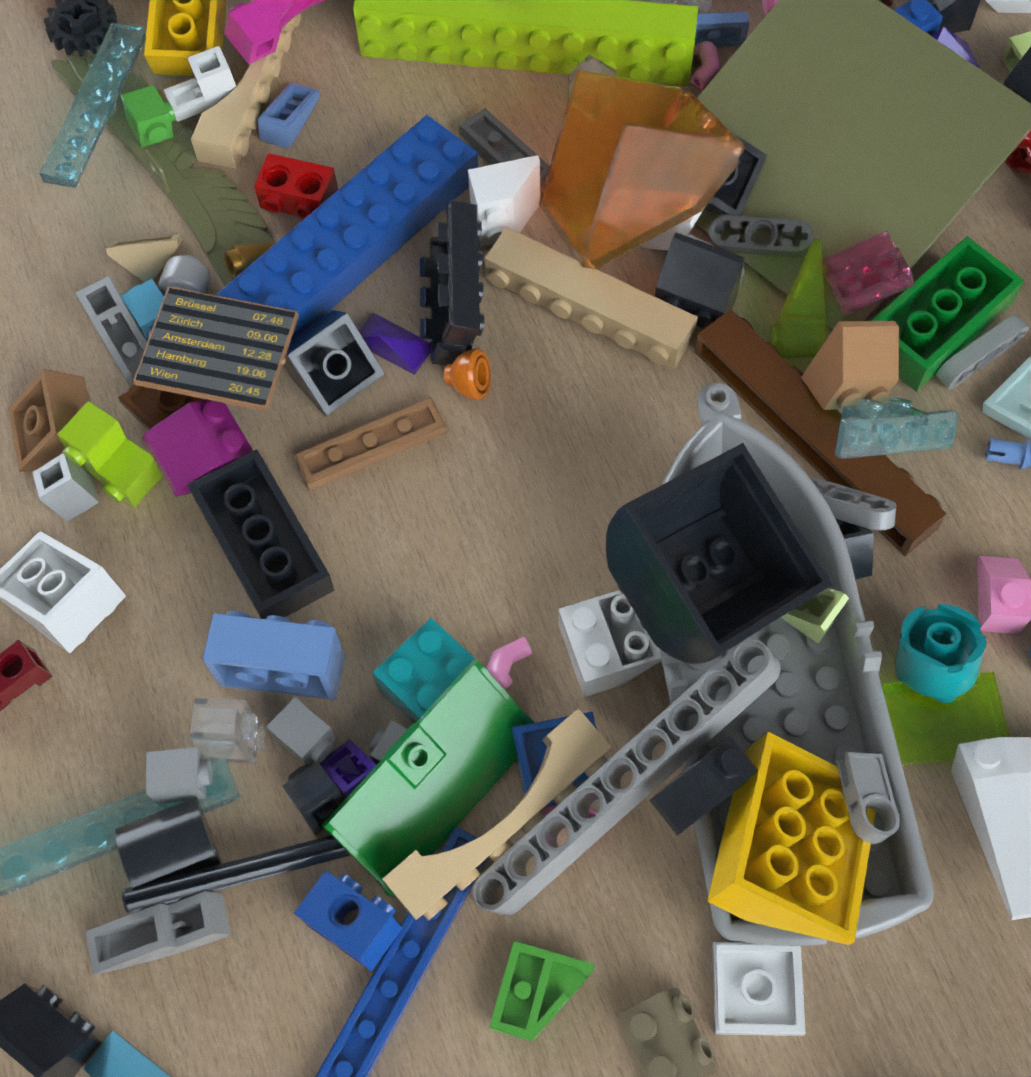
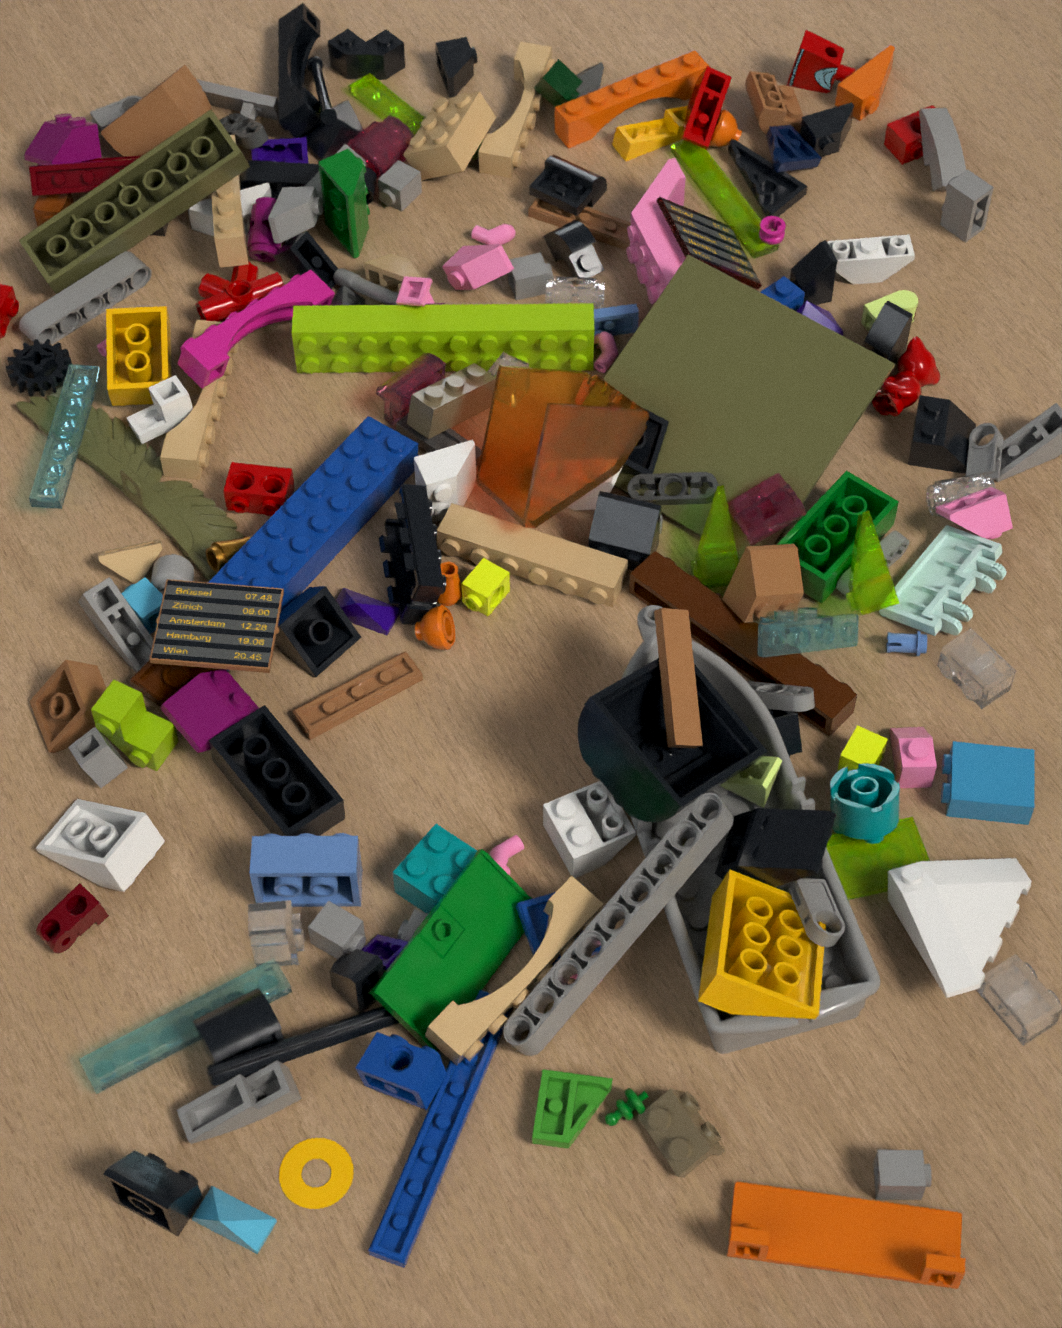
camera: 10 degrees left, 10 degrees down
(148, 115) = (117, 441): bright green brick -> none
(177, 775) = (238, 972): light grey brick -> none
(261, 1043) = (316, 1197): none -> yellow piece
(285, 117) = (238, 431): medium blue slope -> none
(481, 85) = (411, 379): none -> clear pink brick
(494, 324) = (453, 584): none -> orange cone
(521, 106) = (451, 401): none -> dark tan brick
(531, 331) = (485, 587): none -> neon yellow brick
(604, 1001) = (625, 1108): none -> green hair
(703, 785) = (683, 915): black slope -> none
(736, 484) = (678, 678): none -> medium nougat tile
(757, 989) = (750, 1084): white tile -> none
(830, 707) = (776, 844): none -> black slope
(943, 584) = (862, 748): none -> neon yellow brick
(979, 368) = (869, 575): none -> clear neon green slope

